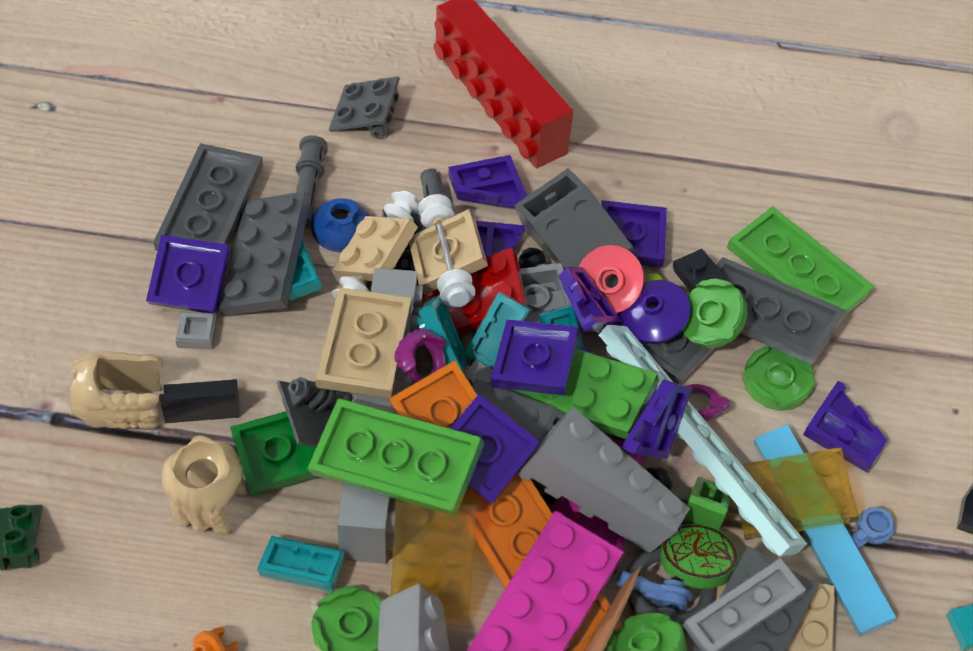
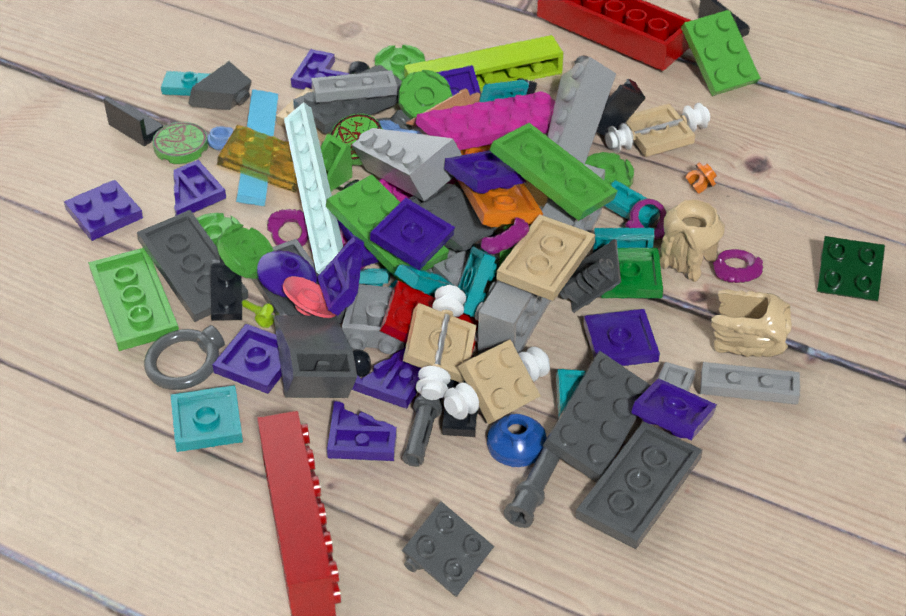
camera: 155 degrees left, 10 degrees down
(124, 335) = (750, 383): none -> light grey plate
(125, 509) = (738, 275): none -> magenta piece
(200, 401) = (683, 317): black panel -> none
(252, 542) = (634, 217): none -> magenta piece
(265, 355) = (622, 336): none -> dark purple plate
(293, 492) = (625, 237): none -> teal plate
(638, 164) = (206, 418): none -> teal plate
(659, 422) = (342, 174): dark purple wing -> none
(691, 238) = (208, 340): none -> dark grey piece
(921, 506) = (180, 142): none -> bright green tile
(924, 377) = (103, 210): none -> plate
(931, 598) = (221, 89): none -> dark grey slope

